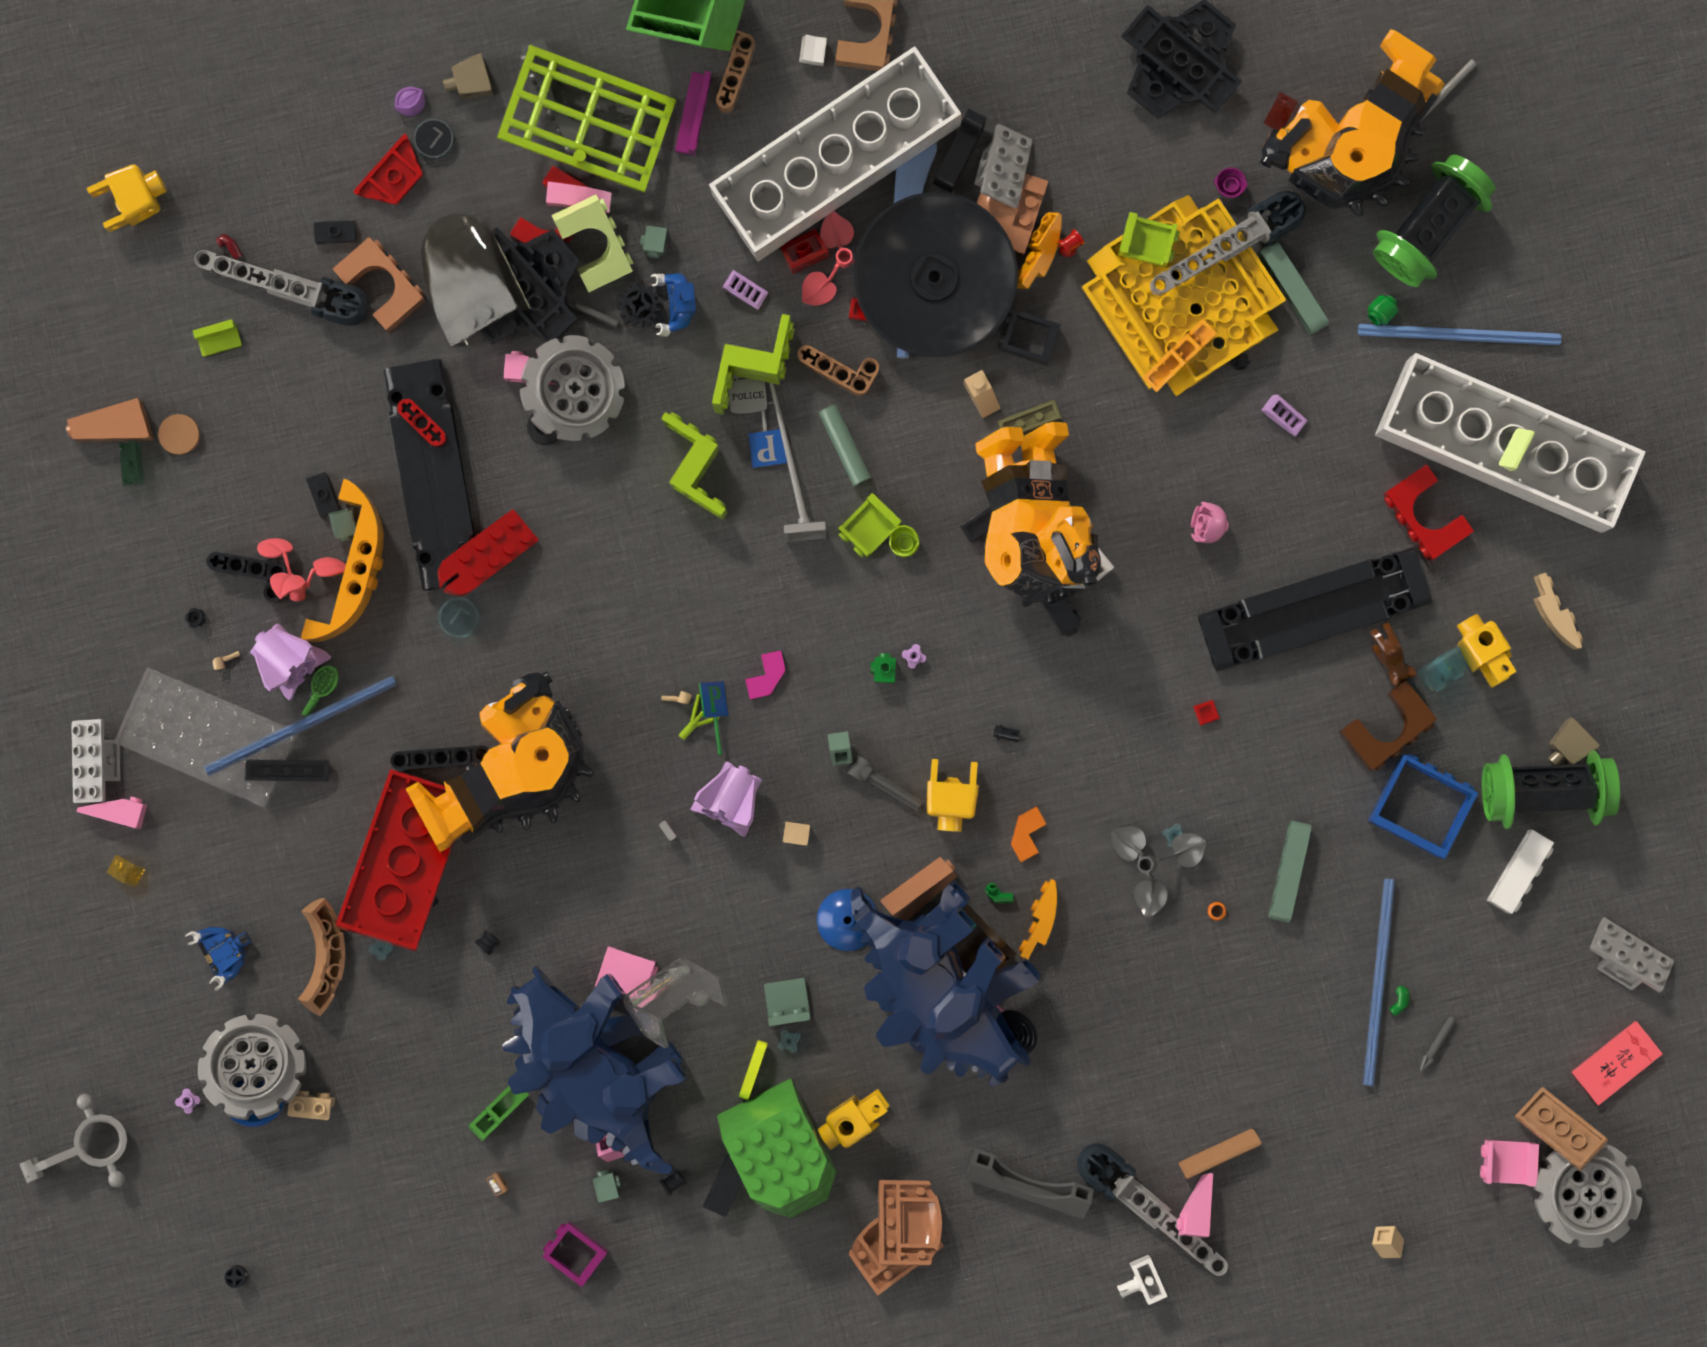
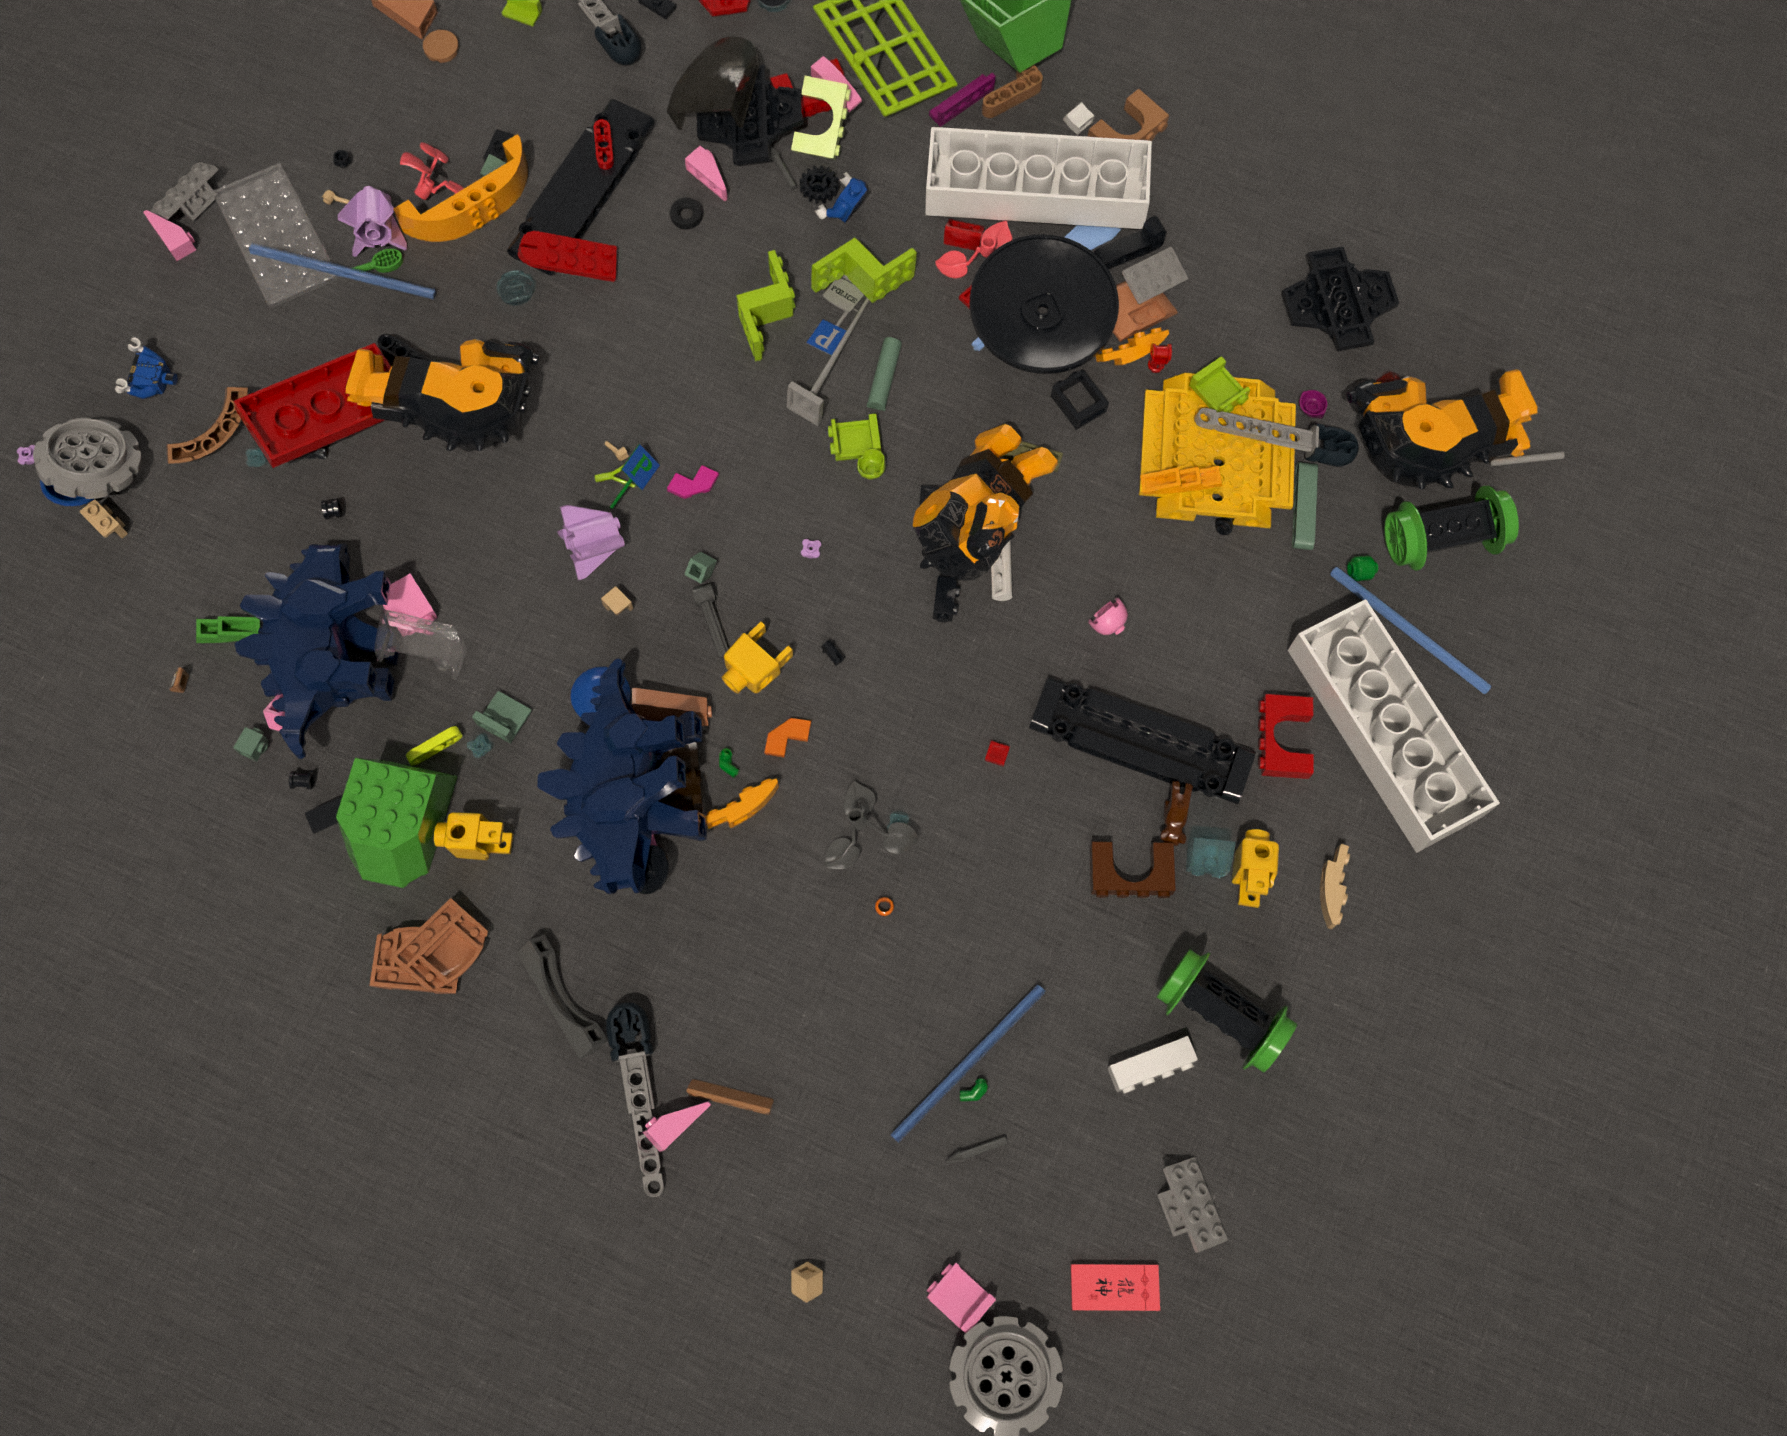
camera: 35 degrees right, 15 degrees down
(125, 871) = (138, 277): clear yellow bracket -> none
(131, 463) = (394, 40): clear green hinge -> none
(247, 569) = (398, 144): black beam -> none
(286, 770) = (305, 290): black plate -> none
(370, 257) = (665, 69): nougat arch -> none
(561, 1231) = (188, 792): magenta window -> none
(574, 354) = (703, 213): light grey piece -> none
(654, 241) = (865, 154): sand green brick -> none
(668, 831) = (527, 531): light grey tile -> none
(735, 275) = (897, 216): lavender slope -> none
(836, 367) = (921, 319): medium nougat beam -> none
(883, 668) = (781, 540): green brick -> none
(982, 394) = (1013, 407): tan slope -> none
(1145, 1280) = (585, 1149): white brick -> none
(1276, 399) = (1222, 590): lavender slope -> none
(1289, 871) = (965, 919): sand green beam -> none
(1446, 779) = (1139, 929): blue window -> none
(1516, 449) = (1394, 723): yellowish green slope -> none
(1561, 1128) = (1025, 1300): medium nougat tile -> none
(1571, 743) = (1272, 994): dark tan torso -> none

